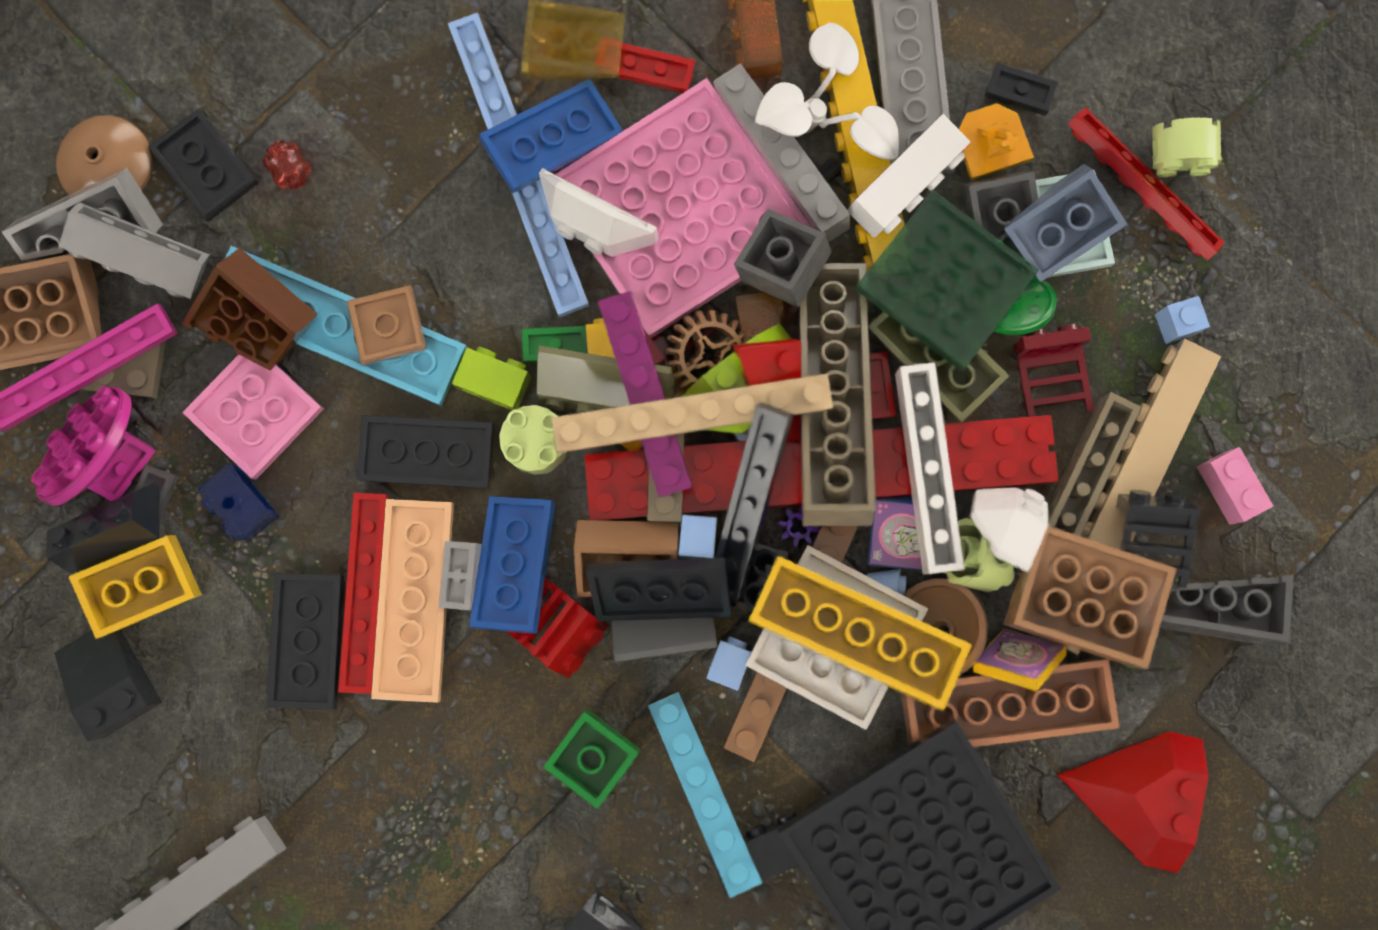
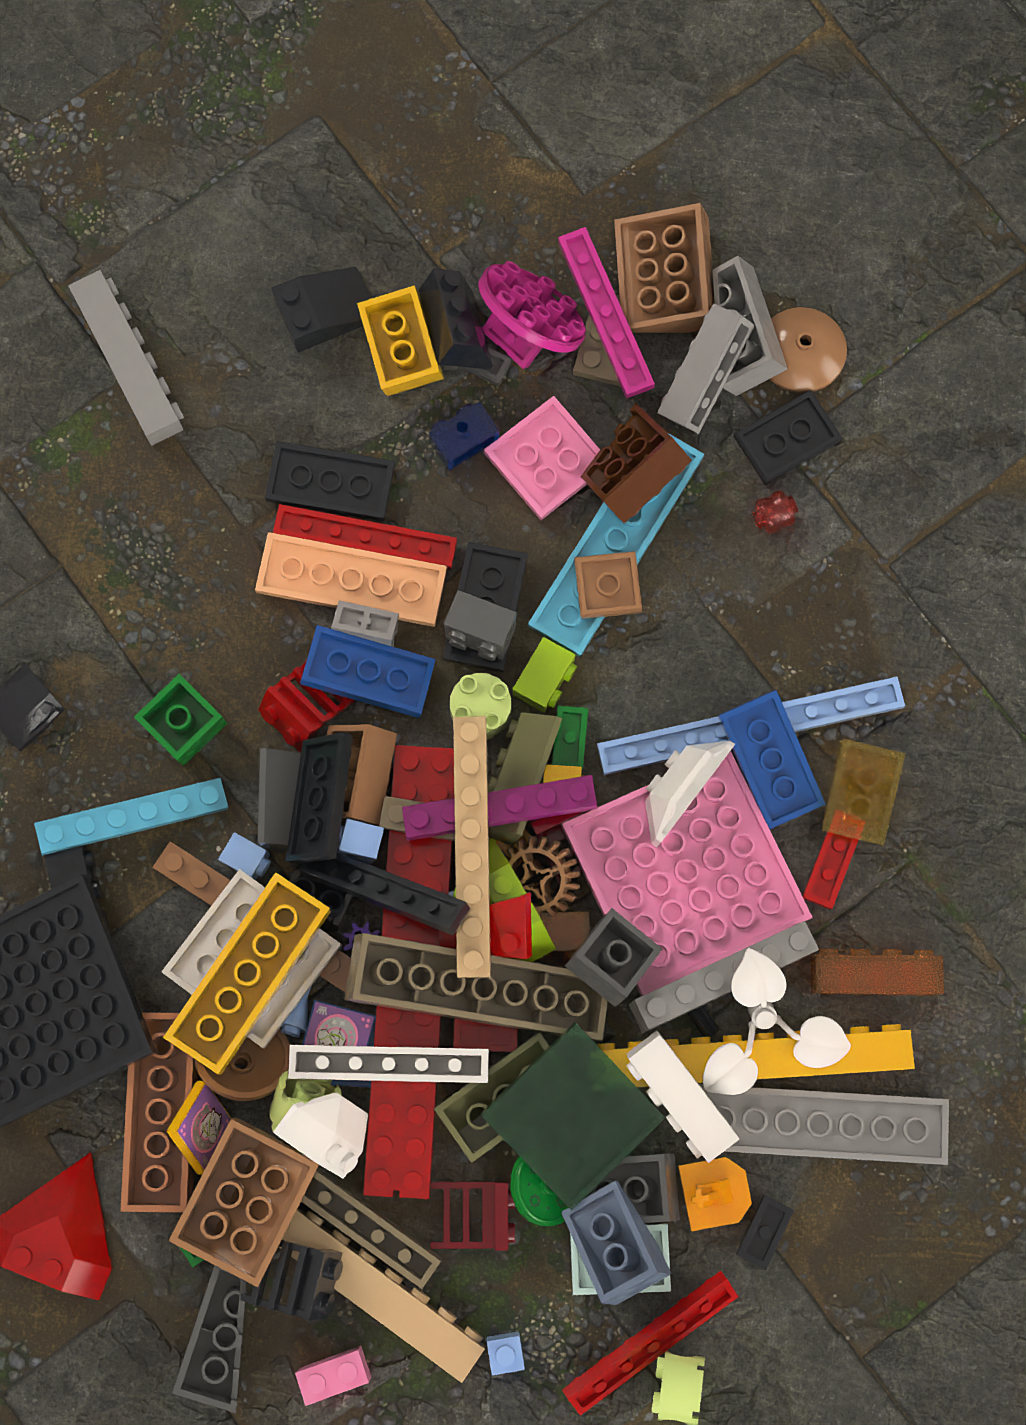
camera: 90 degrees right, 5 degrees down
(449, 447) = (479, 626): none -> dark grey brick

